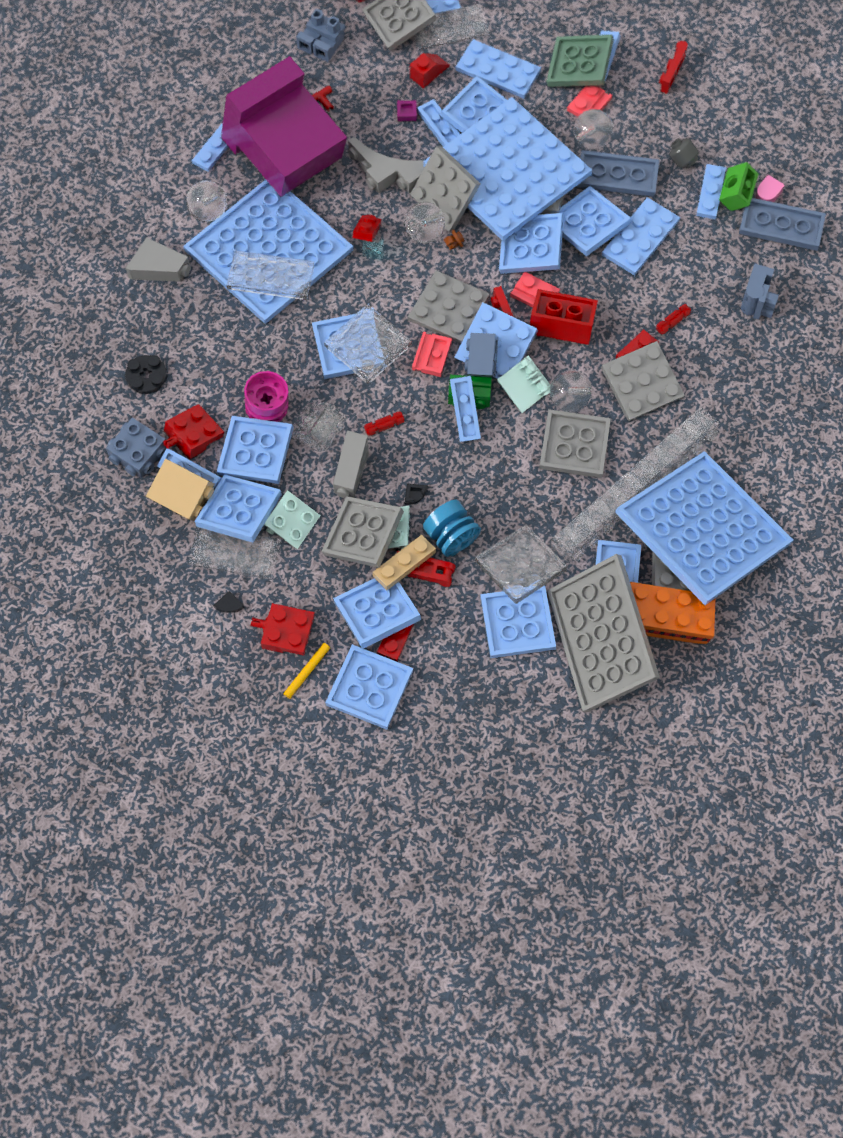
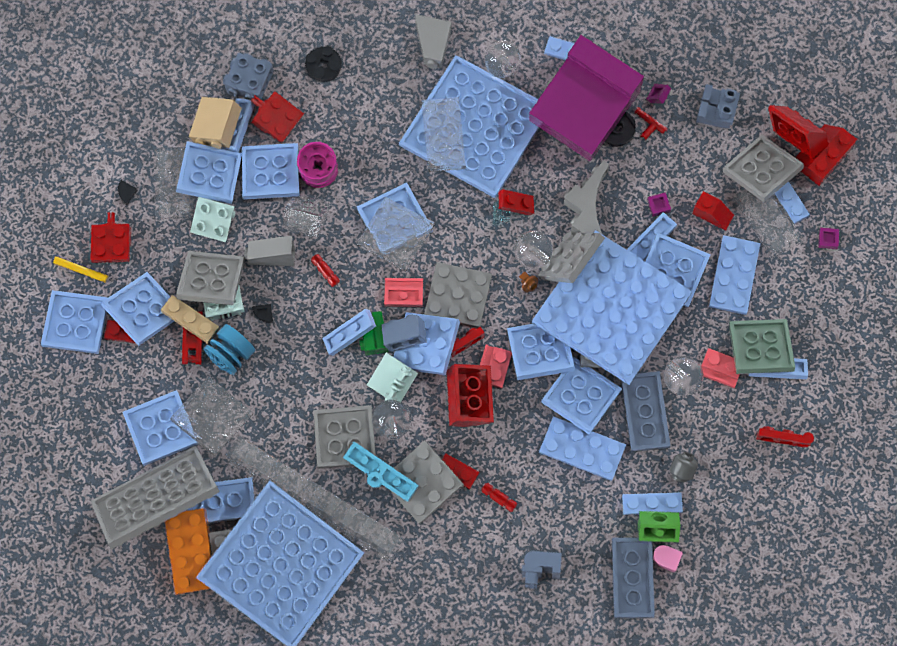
camera: 75 degrees right, 5 degrees up
(626, 412) = (380, 472): none -> medium azure hinge

